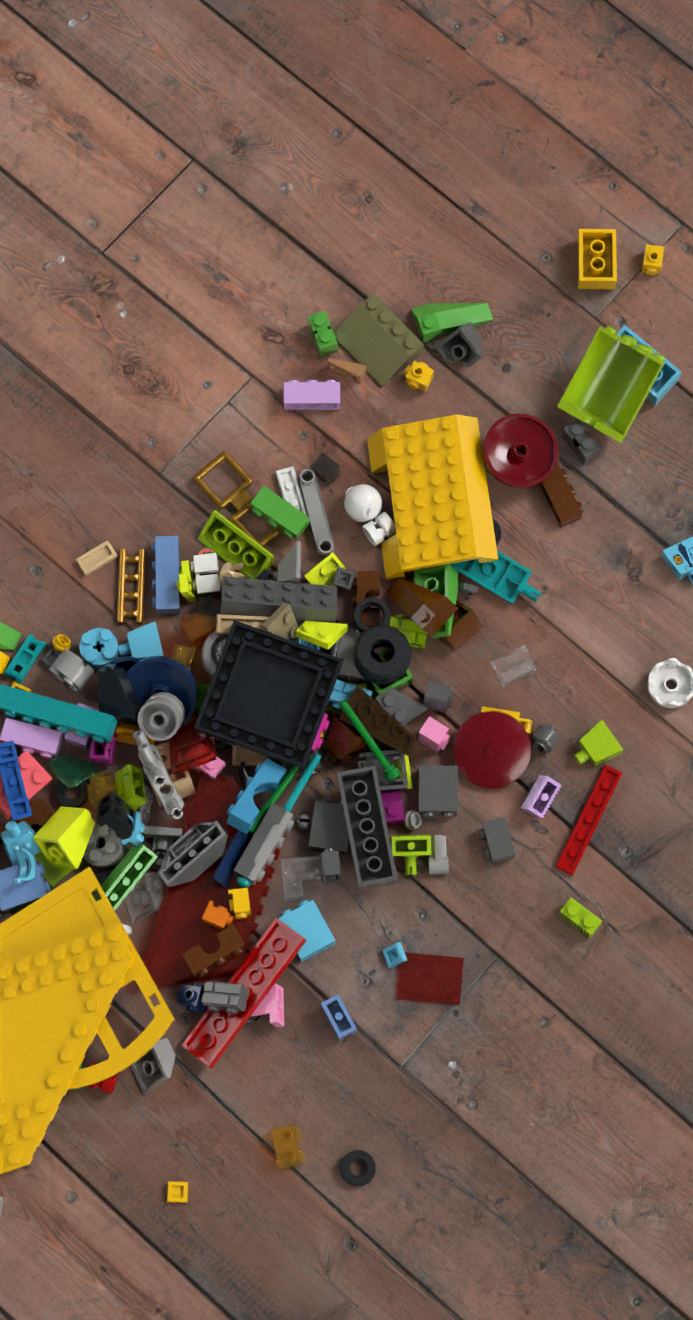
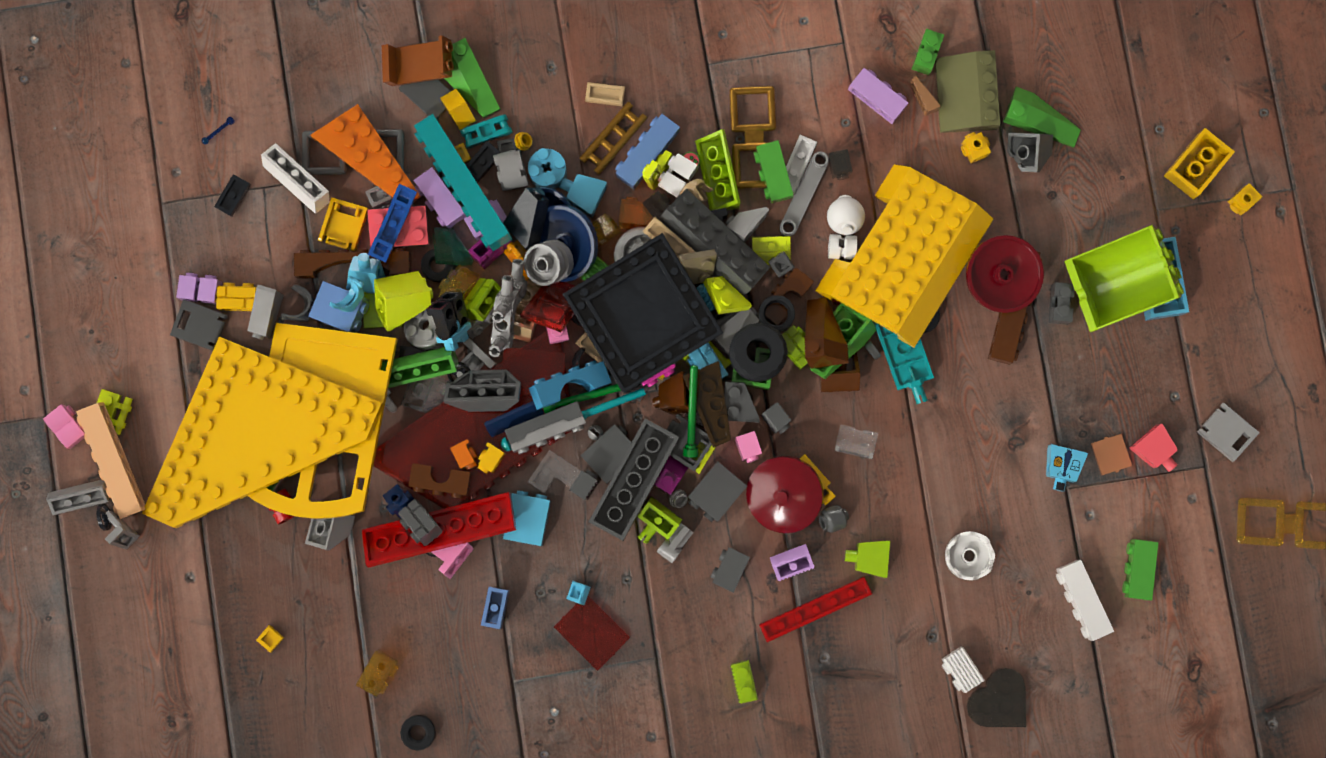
camera: 40 degrees right, 10 degrees up
(42, 680) = (482, 161): none -> black hinge

